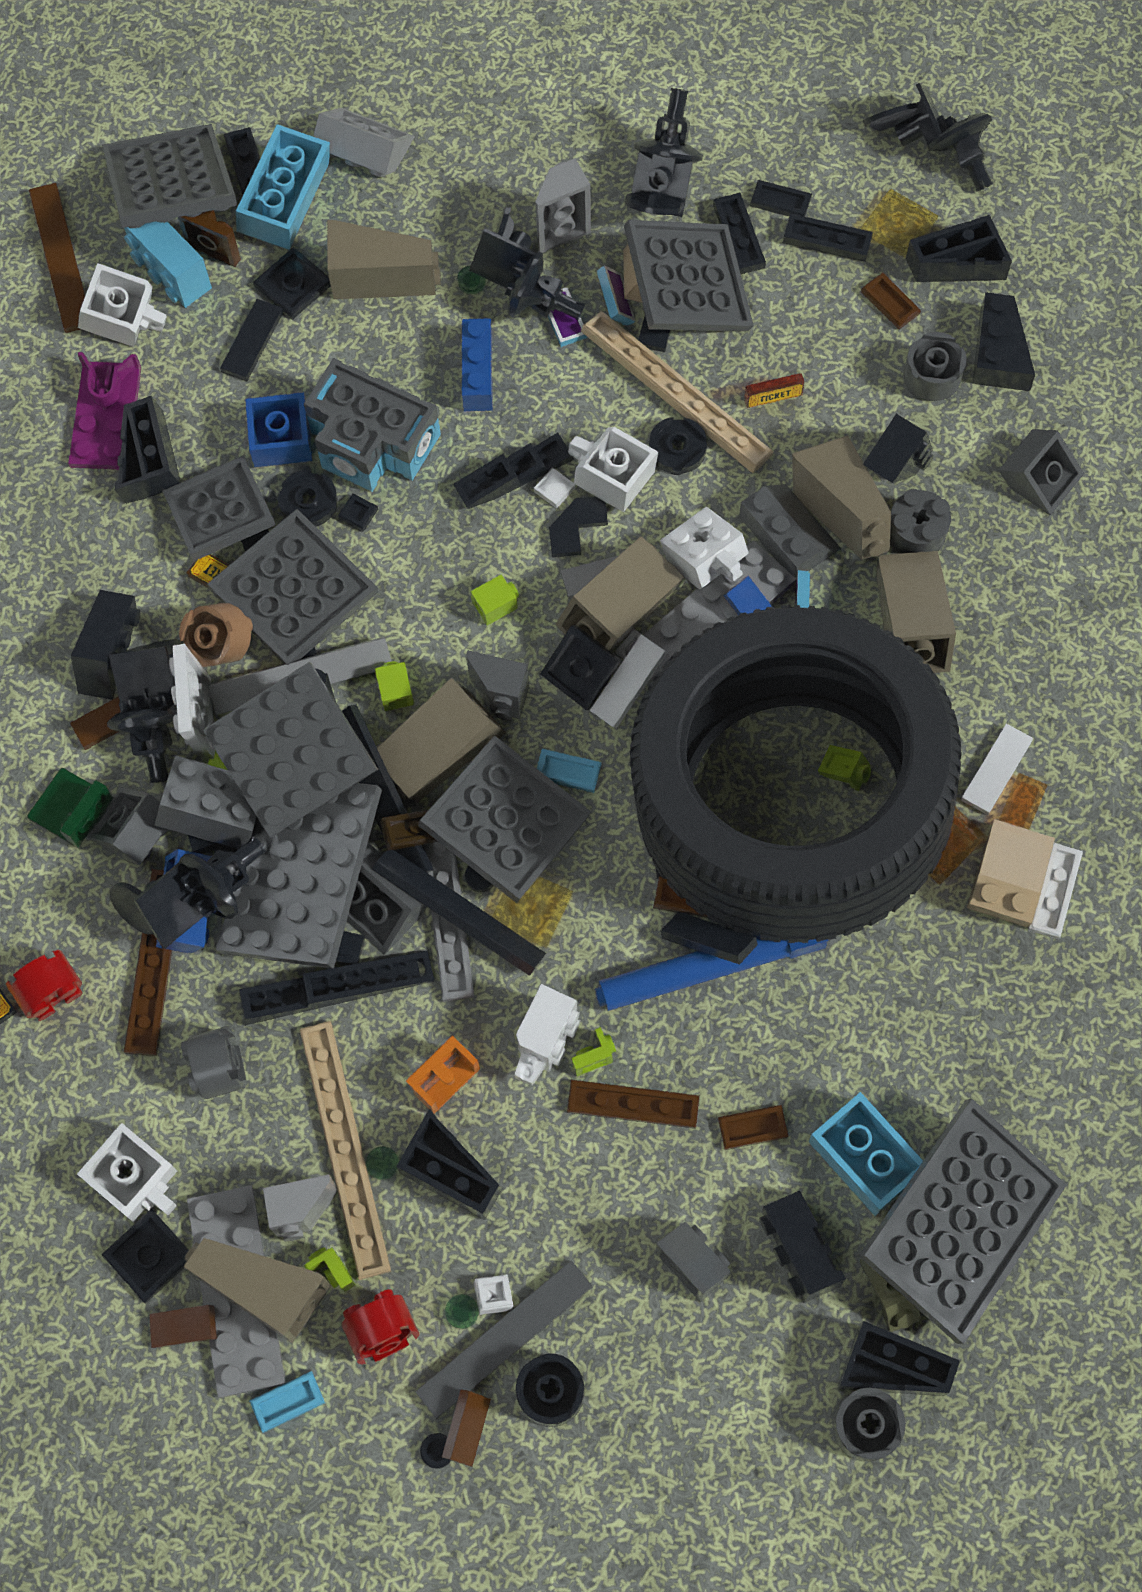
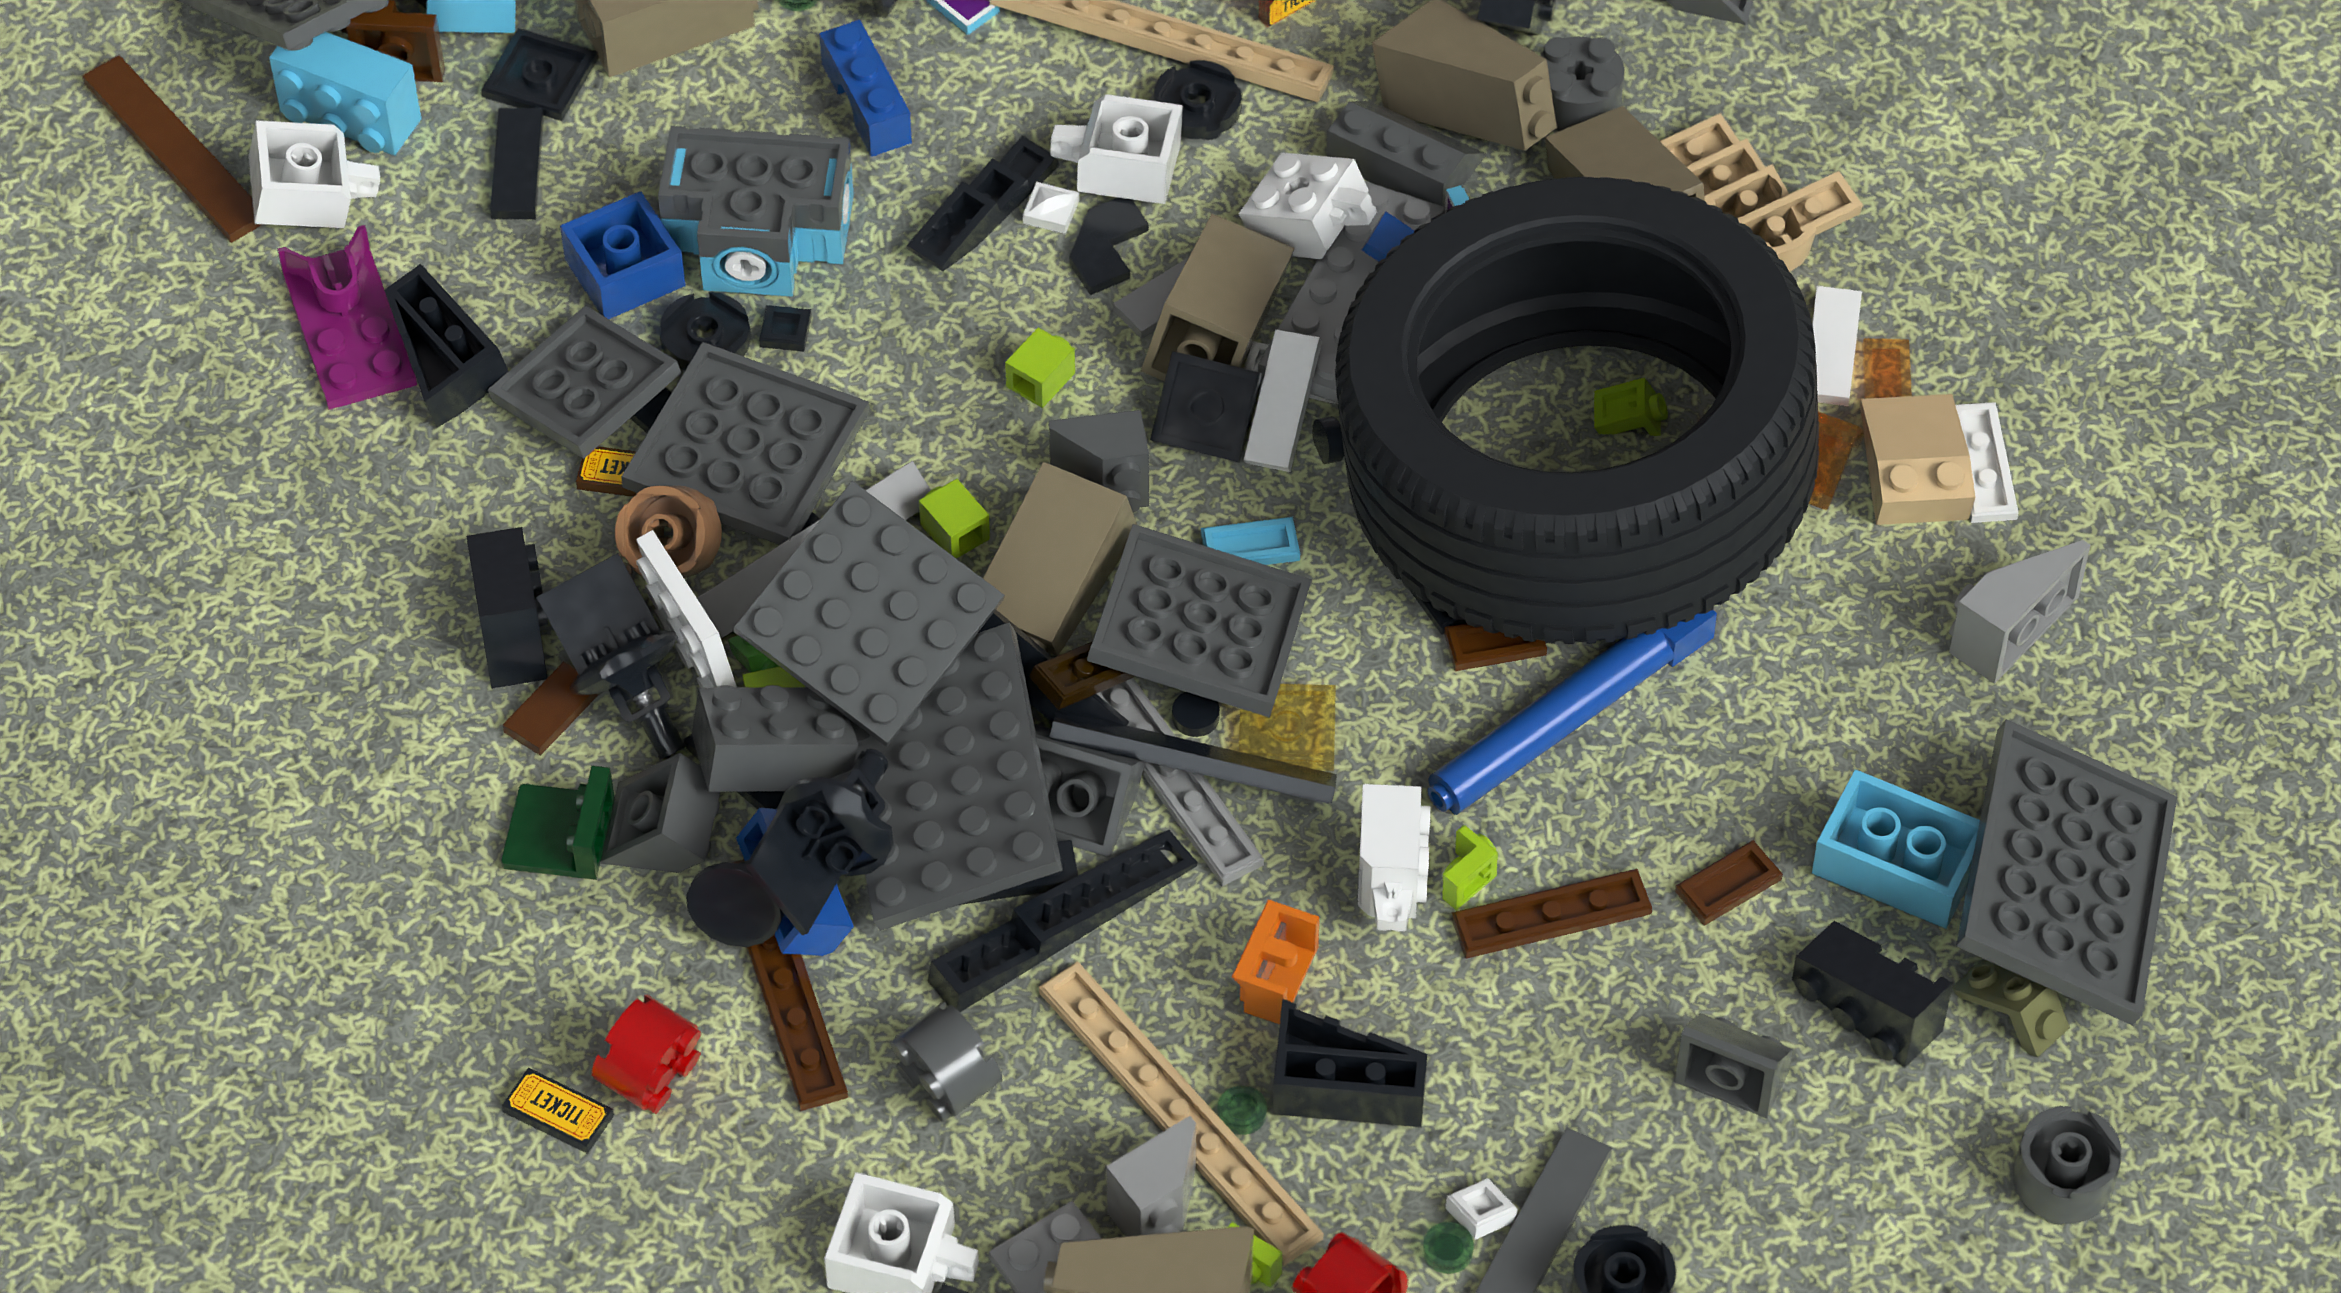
camera: 25 degrees left, 15 degrees down
(708, 938) = (1554, 666): black tile -> none
(896, 1365) = (2075, 1070): black wedge -> none
(986, 648) = (1755, 193): none -> tan slope
(1019, 1011) = (2014, 608): none -> light grey slope

